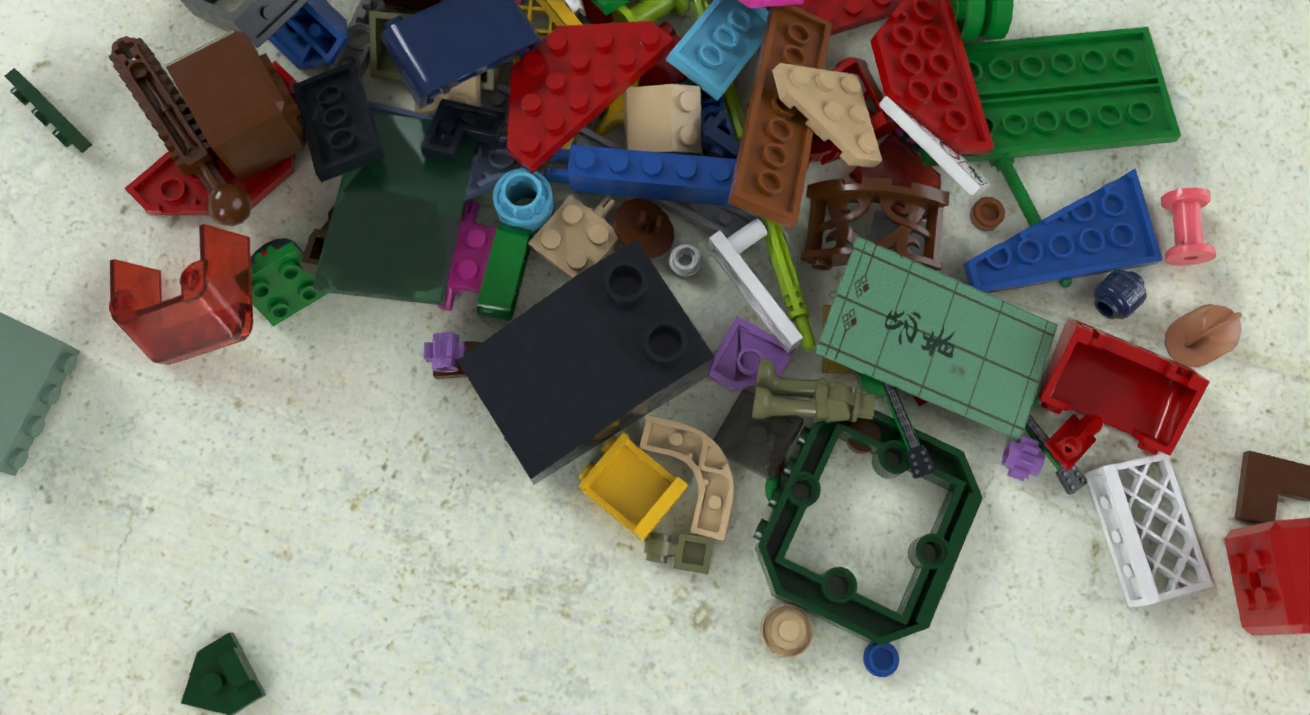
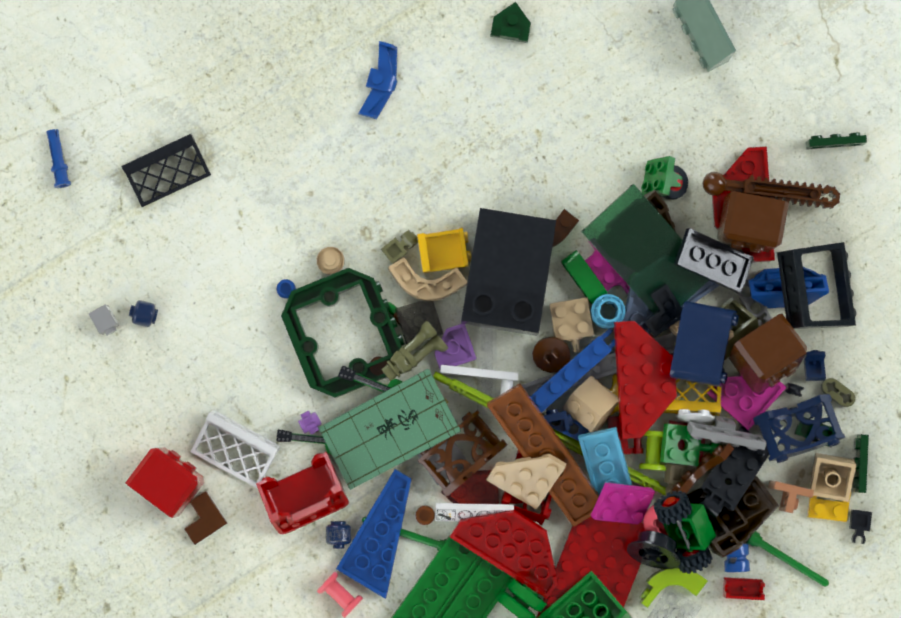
camera: 140 degrees right, 10 degrees up
(207, 315) = (668, 143): clear red windscreen -> none
(444, 351) = (566, 220): medium lavender gear -> none
(690, 252) = (526, 356): white plate -> none
(1074, 439) = (298, 450): red hinge -> none
(1203, 335) = (289, 557): nougat piece -> none

